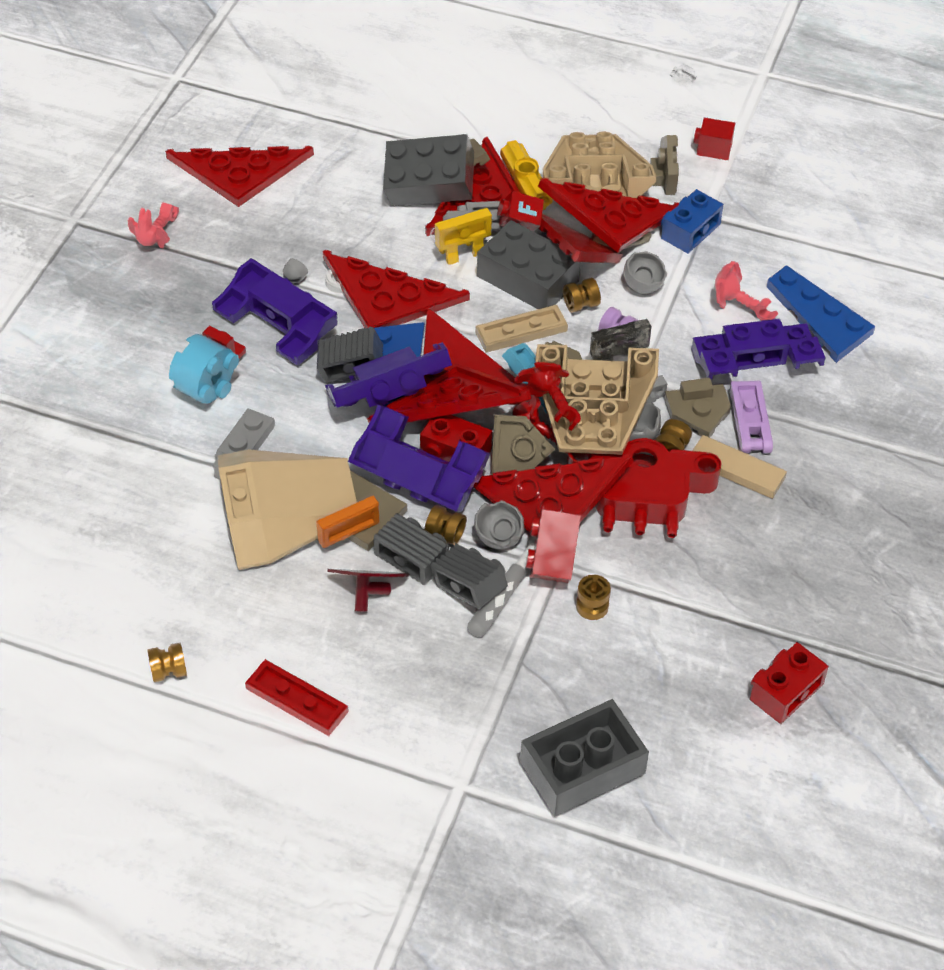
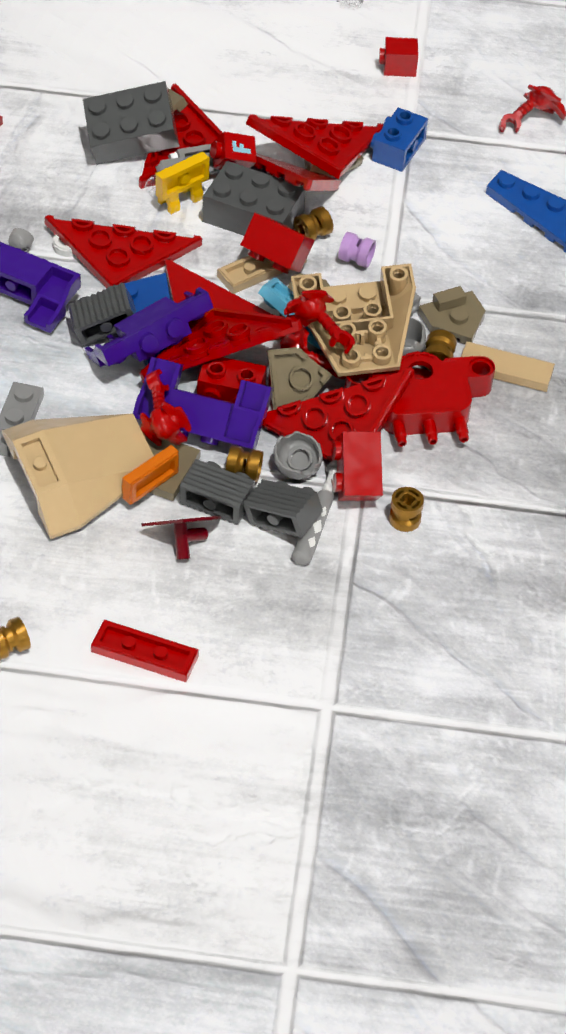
camera: 15 degrees left, 0 degrees up
(374, 470) = (164, 419): none -> red piece
(524, 171) = (222, 111): yellow piece -> none
(537, 309) = (277, 243): none -> red brick
(583, 757) = (441, 657): dark grey brick -> none
(599, 163) = (297, 94): tan wedge -> none
(618, 339) = (366, 262): clear smoke plate -> none
(644, 272) = (368, 194): light grey hair -> none
(666, 164) = (359, 91): dark tan plate -> none
(728, 288) = (453, 198): coral piece -> none
(751, 416) = (507, 317): lavender plate -> none
(756, 346) = (494, 250): dark purple bracket -> none
(843, 198) = (539, 98): none -> red piece

